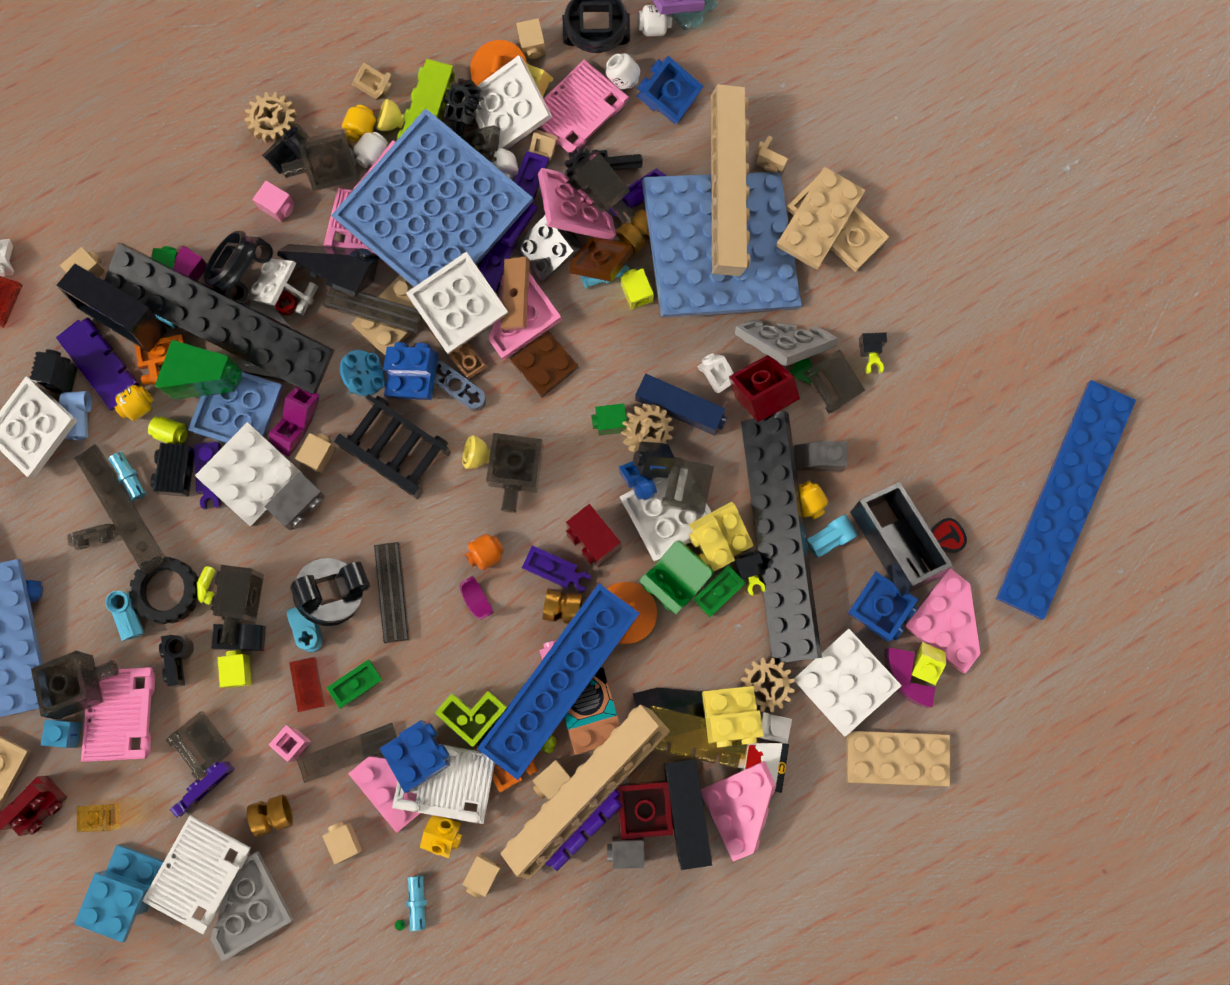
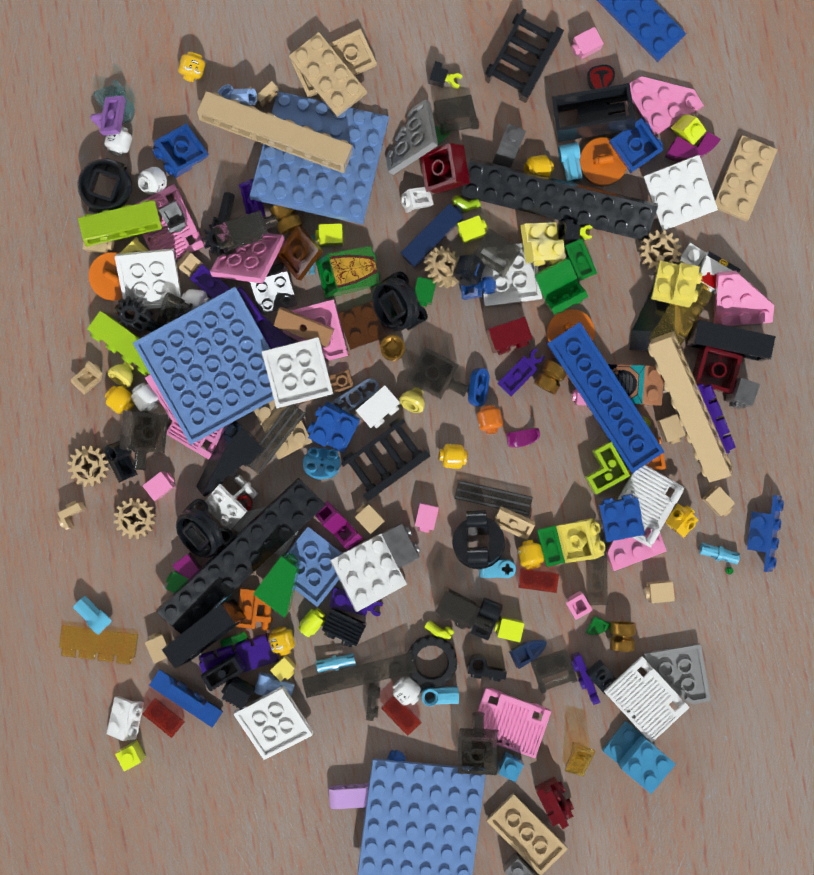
camera: 75 degrees left, 10 degrees up
(31, 319) = (186, 698): none -> blue bracket
(70, 211) = (106, 644): none -> clear yellow windscreen
(73, 347) = (223, 671): none -> black brick
(87, 577) = (401, 715): none -> clear red plate
(95, 185) = (95, 618): none -> medium azure piece
(101, 417) = (283, 668): none -> light yellow plate
(117, 572) = (406, 691): none -> white head
(119, 349) = (234, 639): none -> green tile
(204, 111) = (71, 509): none -> tan bracket
(210, 804) = (601, 675): none -> black plate
(212, 703) = (527, 652): none -> dark blue plate
(235, 193) = (136, 510): none -> tan gear
(273, 780) = (597, 626): none -> green tile
(334, 662) = (530, 554): none -> yellow head
(339, 519) = (426, 517): none -> bright pink brick
(367, 628) = (514, 523): none -> tan plate
(372, 717) = (580, 540): none -> light yellow plate
(424, 524) = (453, 456): none -> yellow head
(452, 414) = (378, 407): none -> white brick
(463, 952) = (764, 532): none -> blue bracket
(519, 525) = (478, 387): none -> blue plate
(528, 405) = (392, 348): none -> pearl gold wheel
(559, 50) = (119, 223): none -> lime brick
(590, 106) = (173, 216): none -> dark grey bracket
(601, 324) = (347, 271): none -> slope
(601, 382) = (412, 314): none -> black piece
(705, 447) = (472, 229): none -> neon yellow brick
(730, 431) = (464, 205): none -> lime arm
(756, 131) = (244, 96): none -> light blue piece
(769, 69) = (191, 66): none -> yellow head
(845, 573) = (601, 163): none -> orange shield
(921, 454) = (542, 54): none -> black fence
(981, 503) = (586, 43): none -> bright pink brick

